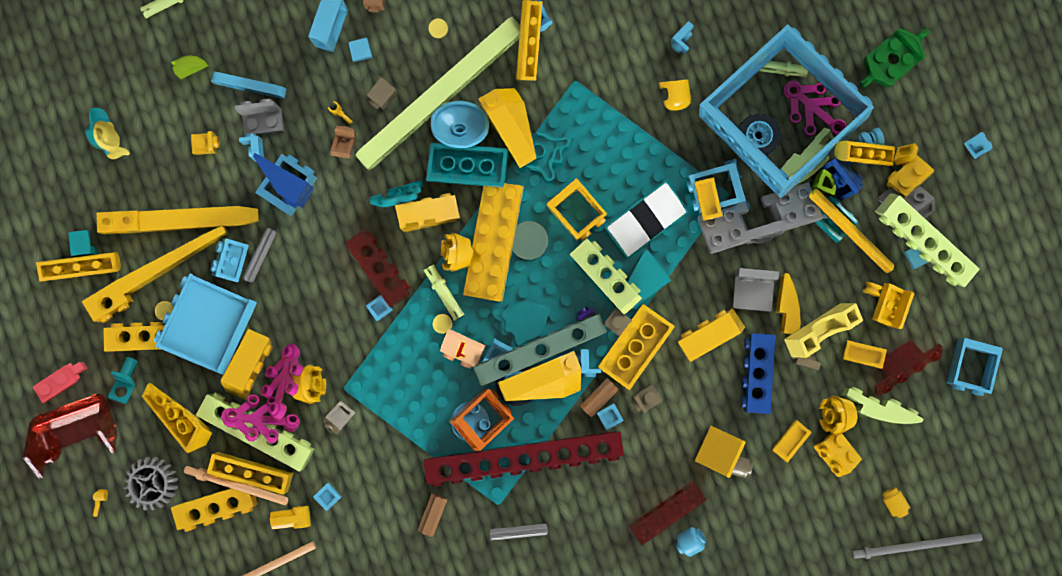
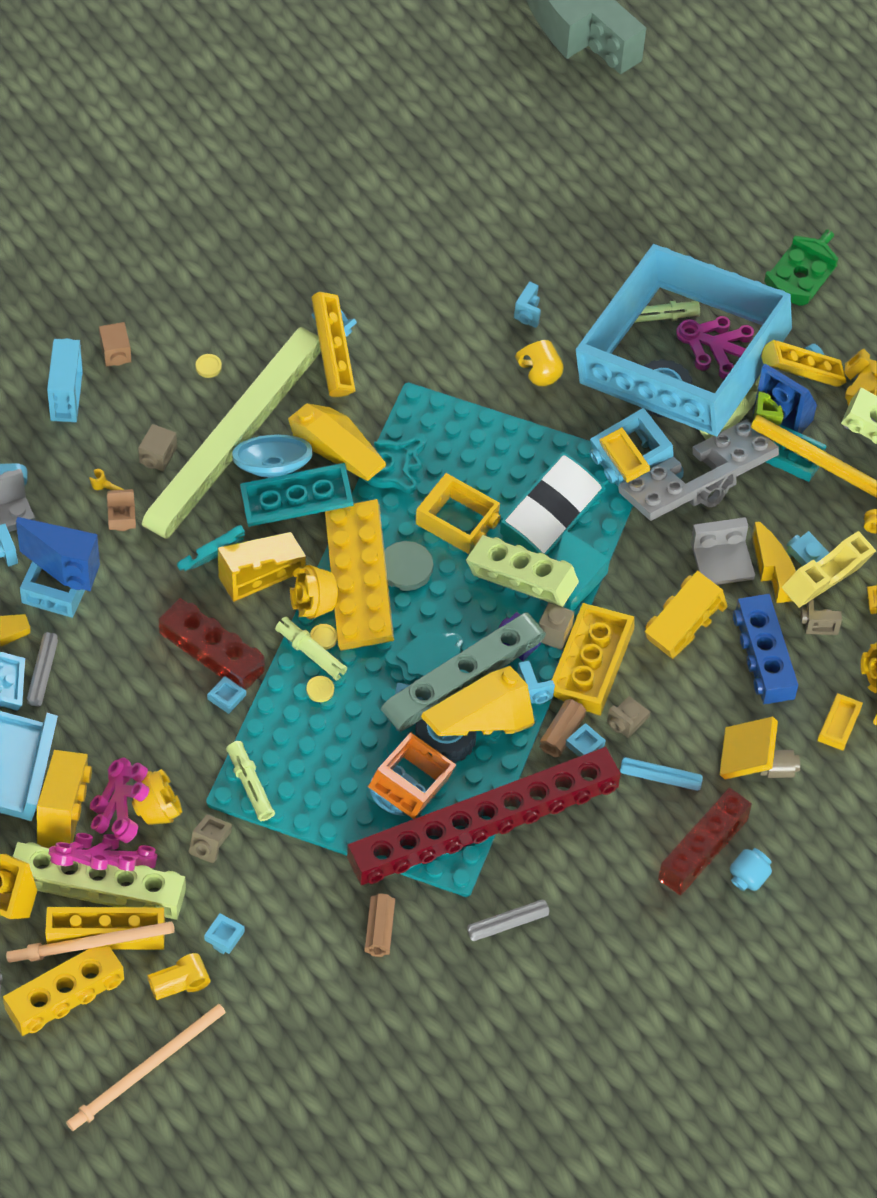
camera: 15 degrees left, 30 degrees down
(360, 49) = (112, 409): medium azure tile -> none
(373, 377) = (246, 772): none -> yellowish green pin
(456, 282) = (324, 635): none -> light yellow piece
(462, 348) = (358, 698): light nougat slope -> none
(655, 449) = (661, 773): none -> medium azure axle
(814, 303) = (806, 549): none -> medium azure bracket

